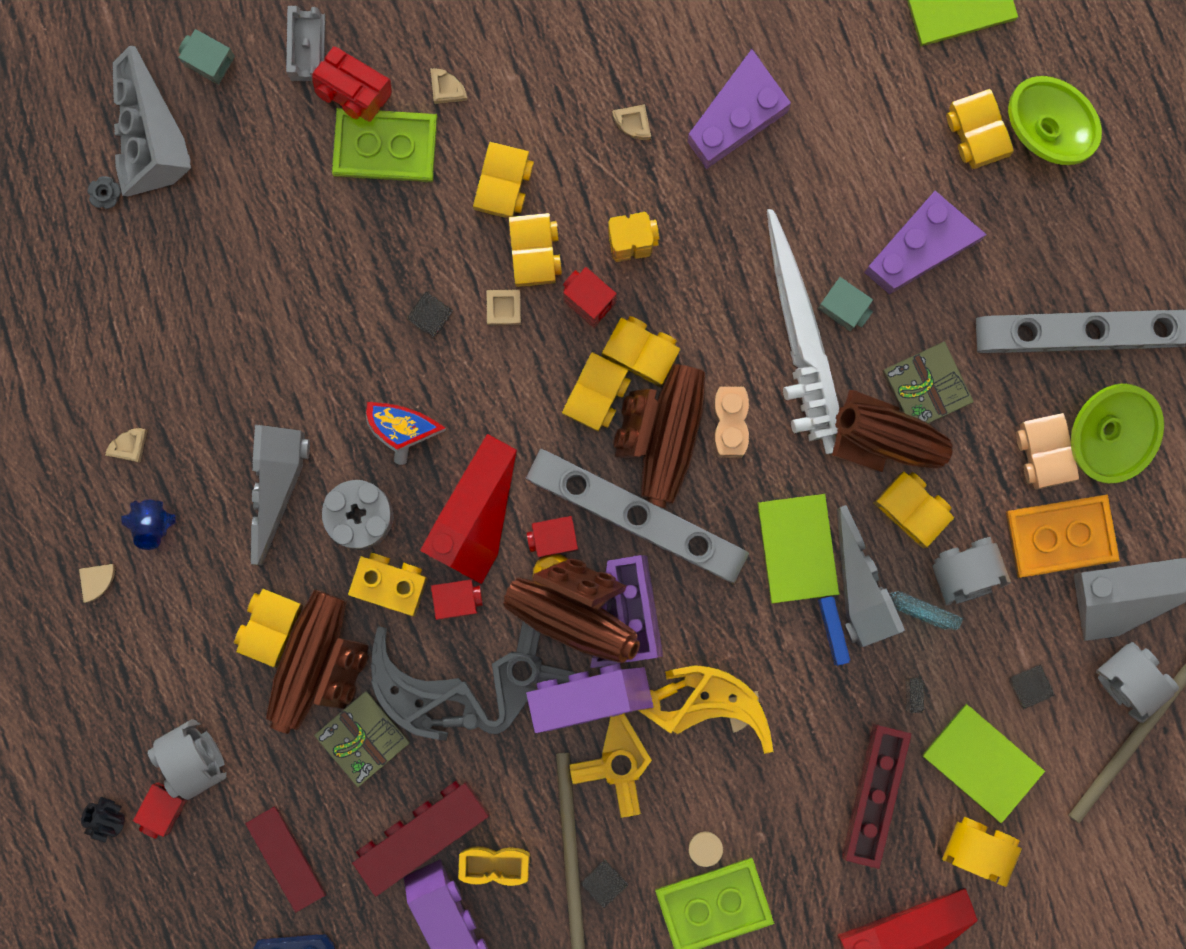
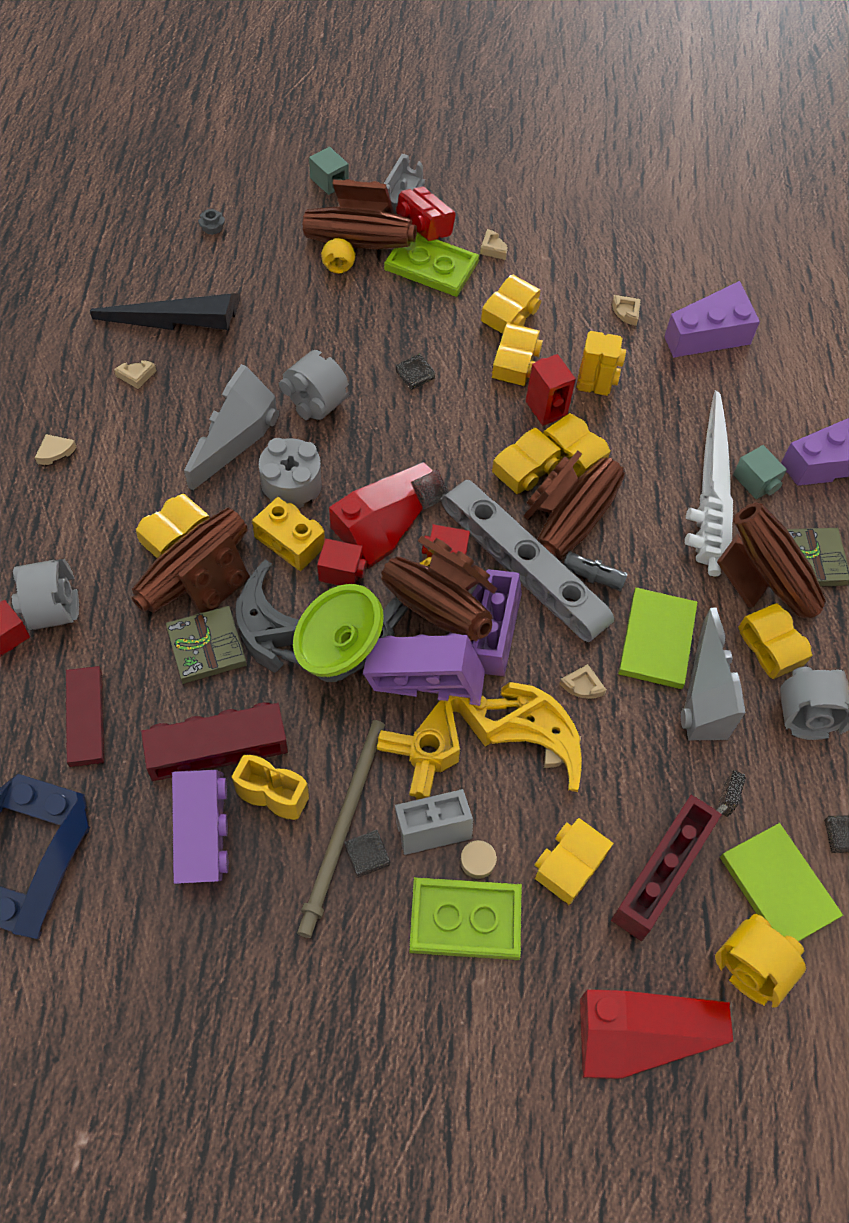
camera: 15 degrees right, 25 degrees down
(148, 523) = (119, 418): clear blue rock -> none
(151, 142) = (263, 198): light grey wedge -> none
(153, 335) = (203, 311): none -> black wedge
(276, 190) = (338, 255): none -> yellow piece
(282, 134) = (362, 219): none -> copper plate
(336, 399) = (315, 385): none -> light grey brick
(400, 427) = (353, 434): shield -> none
(478, 699) = (338, 630): none -> lime dish
(503, 307) = (476, 385): tan tile -> none
(509, 472) = (429, 488): none -> clear smoke tile
(652, 834) = (434, 821): none -> light grey hinge
(730, 411) = (633, 518): light nougat brick -> none
(735, 500) = (595, 571): none -> dark grey pin
(741, 629) = (583, 683): none -> tan tile
(791, 818) = (573, 860): none -> yellow brick
(834, 630) = (670, 710): blue tile -> none
(925, 611) = (768, 718): clear light blue tile -> none

